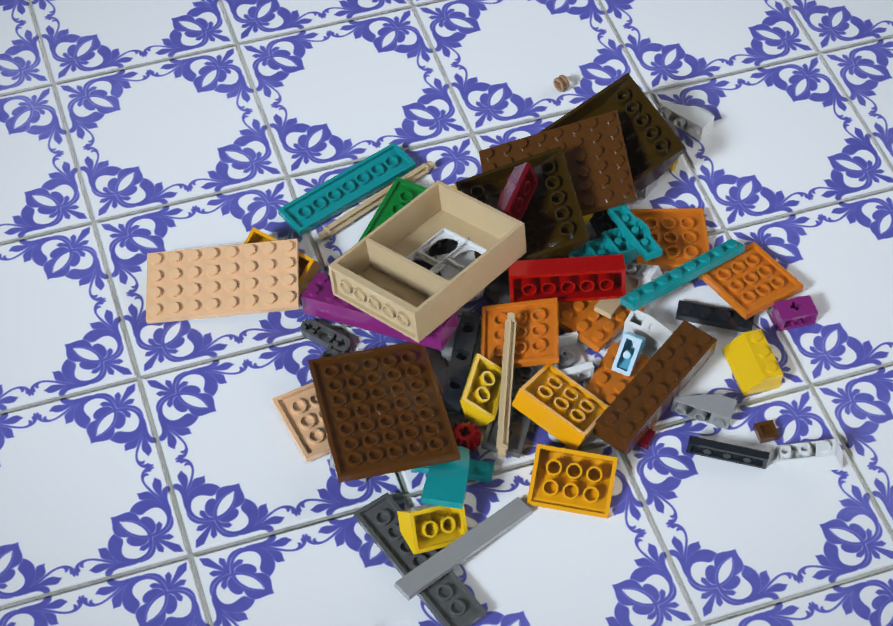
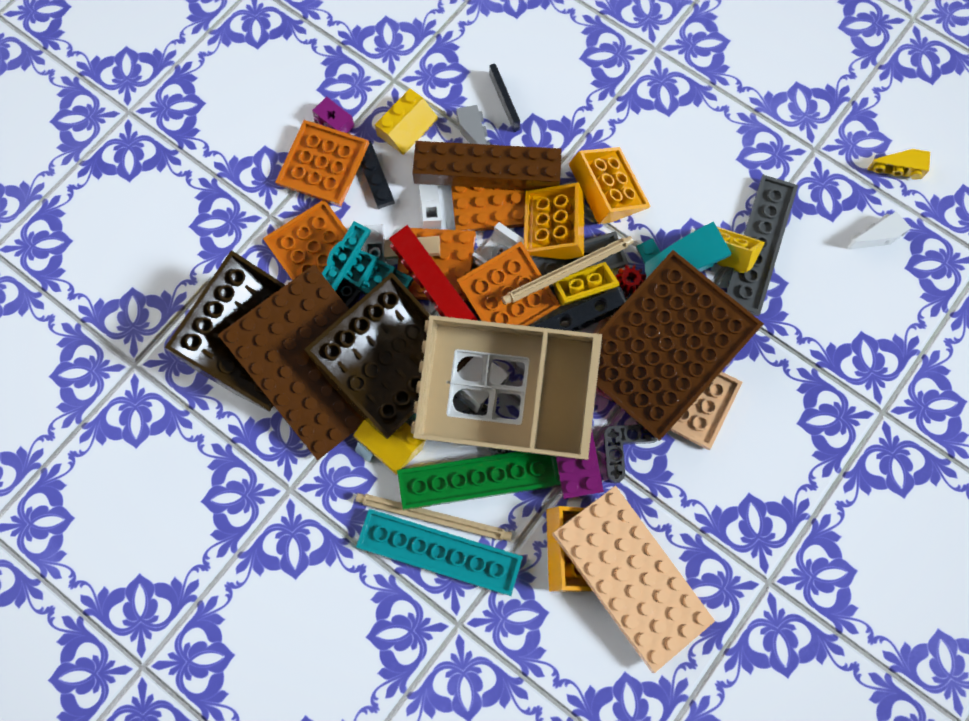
camera: 120 degrees left, 20 degrees up
(462, 548) = (728, 218): light grey tile -> none
(518, 191) = (387, 359): dark red slope -> none
(561, 83) = (175, 444): medium nougat bush -> none
(628, 353) = (466, 203): medium azure slope -> none
(682, 275) = (356, 206): teal plate -> none
(689, 119) = (156, 303): white slope -> none
(766, 431) = (462, 86): reddish brown tile -> none
(814, 455) = (465, 45): white slope -> none

